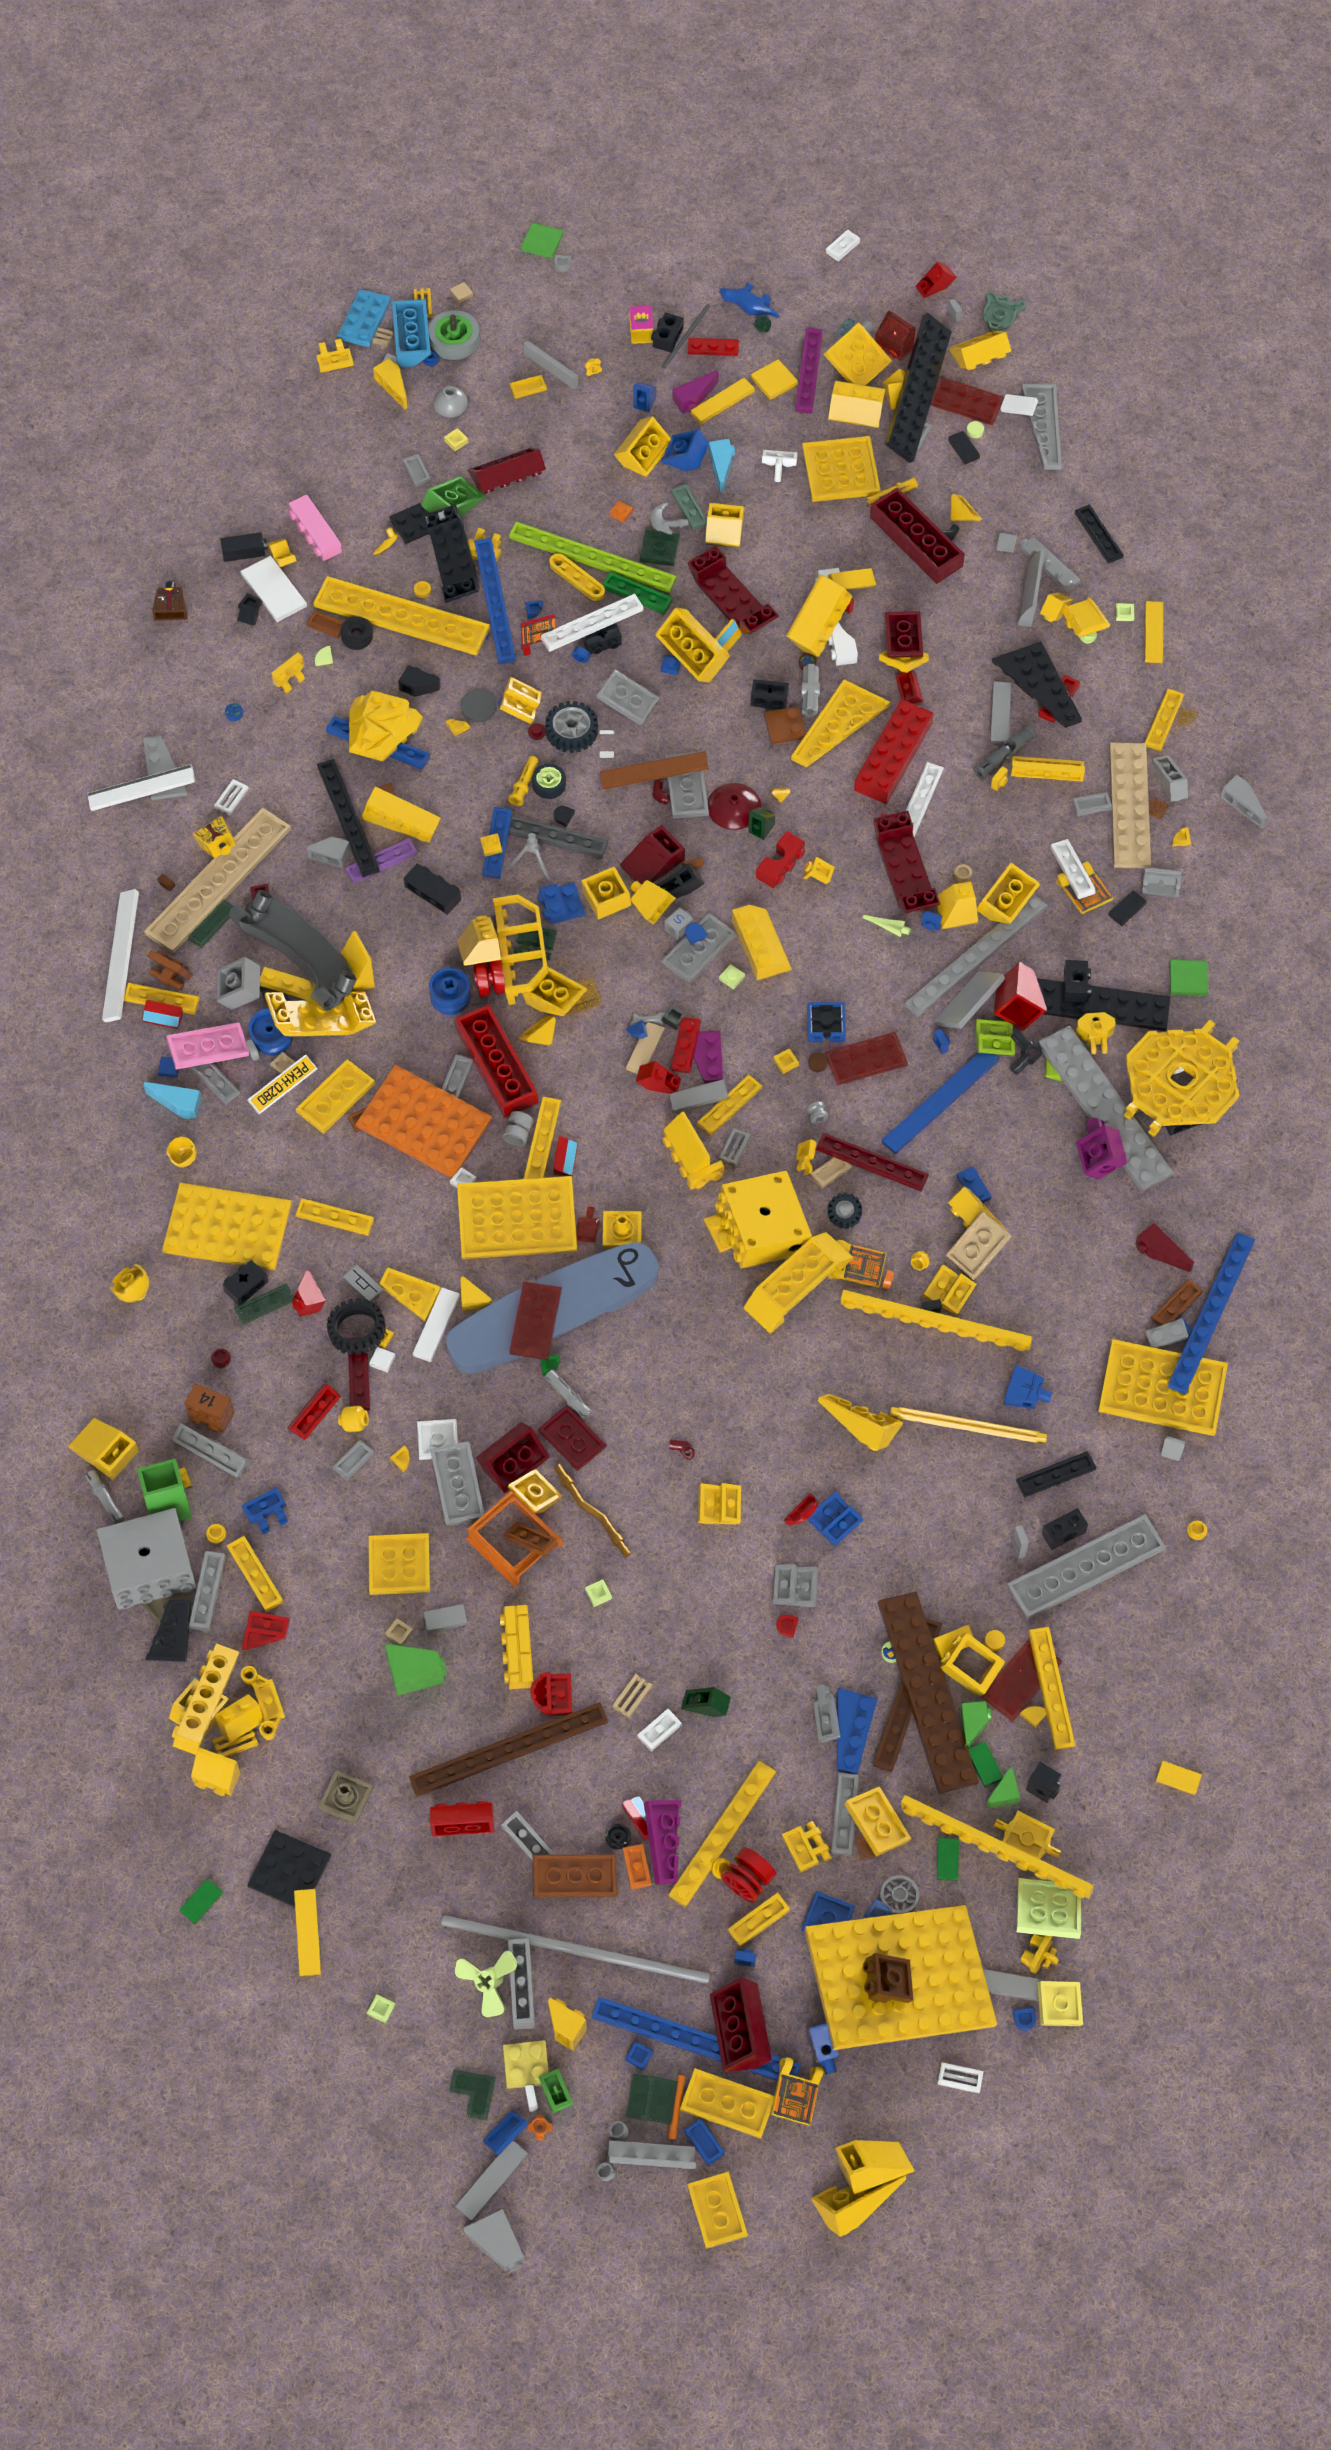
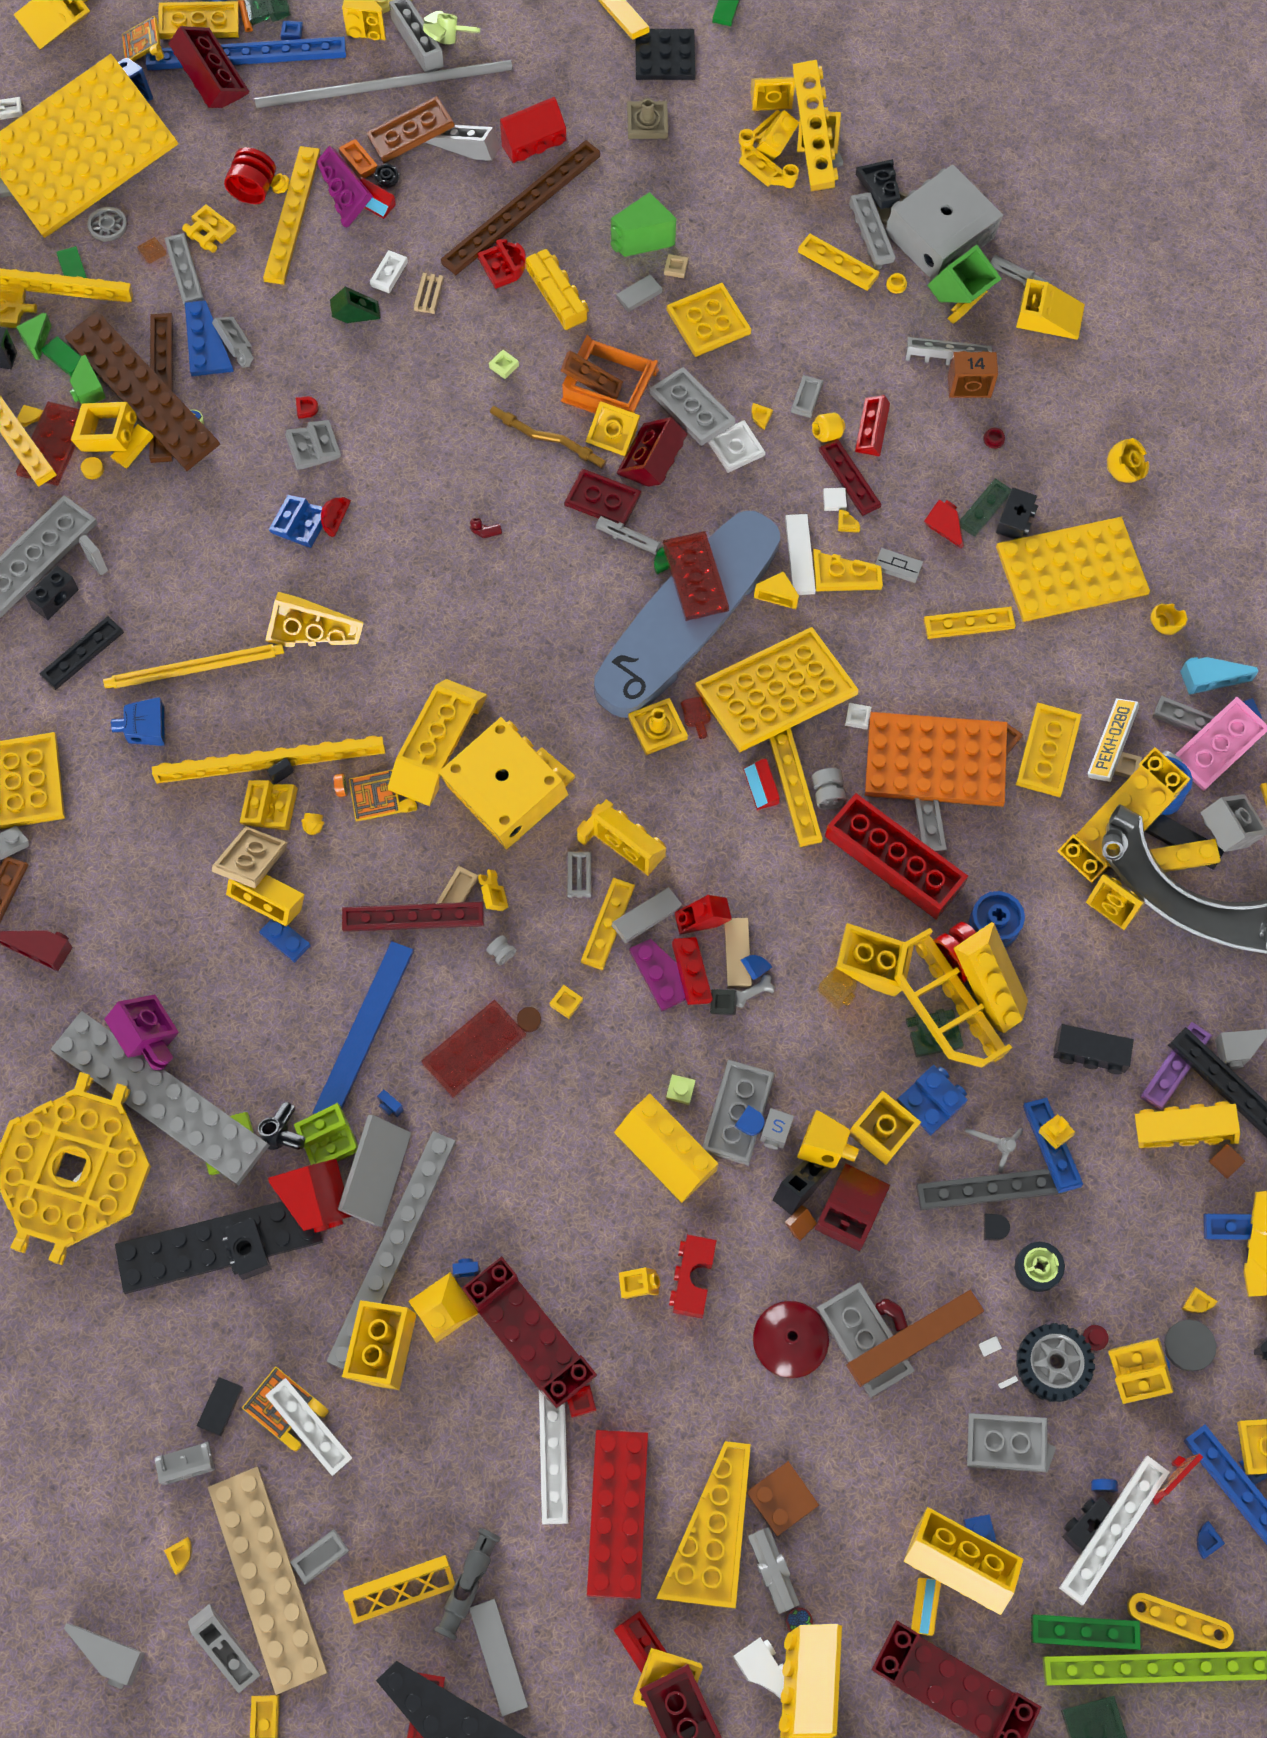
camera: 155 degrees right, 5 degrees up
(264, 1505) = (865, 322): blue plate -> none
(264, 1629) = (800, 221): red wing -> none
(348, 1310) = (892, 494): black tyre -> none
(521, 787) = (1068, 1241): yellow pin -> none
(541, 1031) = (870, 915): yellow slope -> none
(719, 1504) = (423, 491): yellow slope -> none
(745, 1957) = (228, 123): blue plate -> none
(758, 1920) = (222, 162): yellow plate -> none
(761, 822) = (742, 1319): dark green slope -> none
(769, 694) = (823, 1529): black brick -> none
(780, 793) = (741, 1384): yellow slope -> none
(826, 1021) = (539, 1069): piece -> none
(827, 1910) = (166, 184): blue tile -> none
(844, 1210) = (420, 842): black wheel -> none
(877, 1821) = (148, 266): yellow plate -> none
(877, 1909) = (120, 198): blue plate -> none
(888, 1978) = (82, 118): reddish brown plate -> none
(894, 926) = (512, 1245): yellowish green piece -> none
(963, 873) = (454, 1365): tan tile -> none
(1000, 779) = (457, 1535): yellow plate -> none
(1096, 1031) = (201, 1193): yellow hinge -> none
(1157, 808) = (227, 1591): clear orange tile -> none
(1188, 977) = (108, 1334): bright green tile -> none

